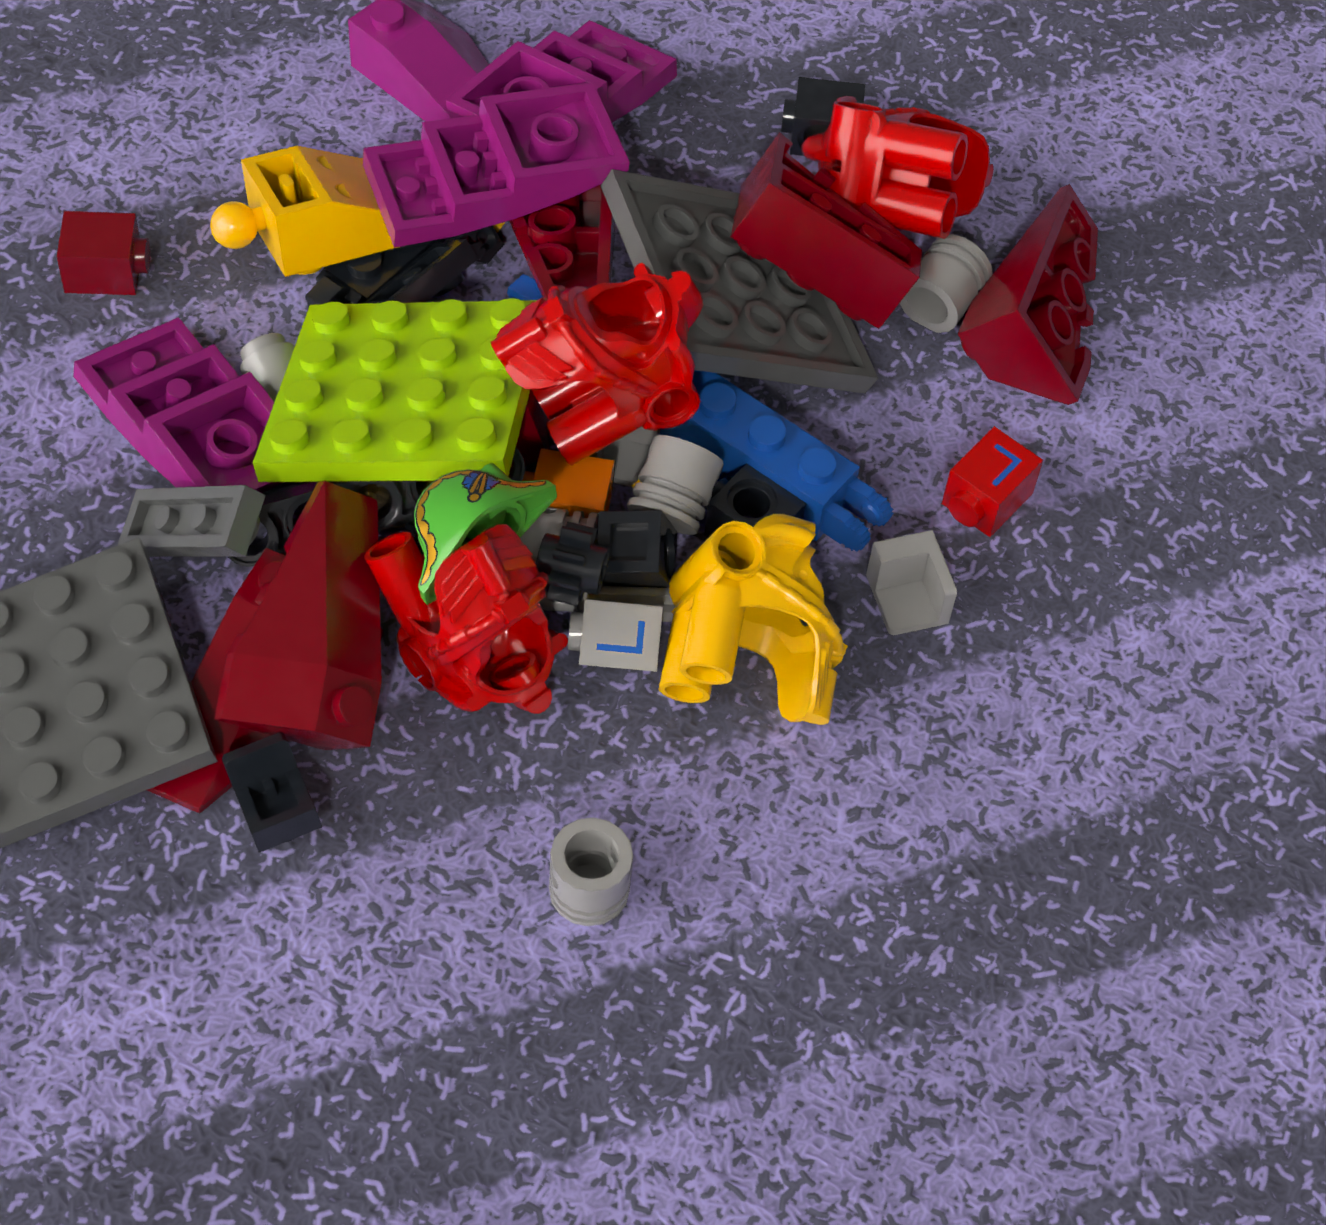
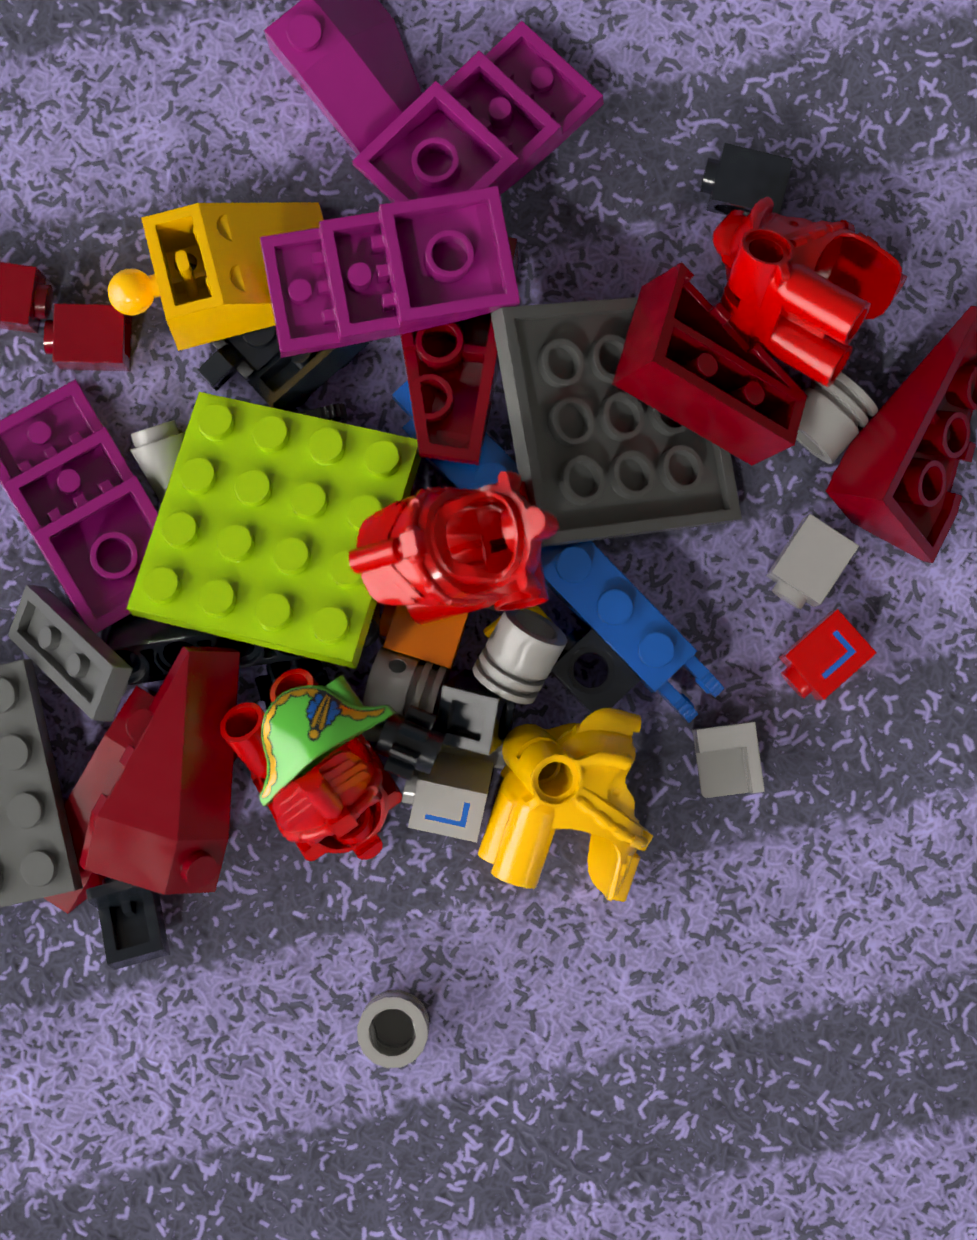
camera: 15 degrees right, 30 degrees up
(191, 279) = (89, 338): none -> dark red brick
(956, 404) = (810, 563): none -> light grey brick

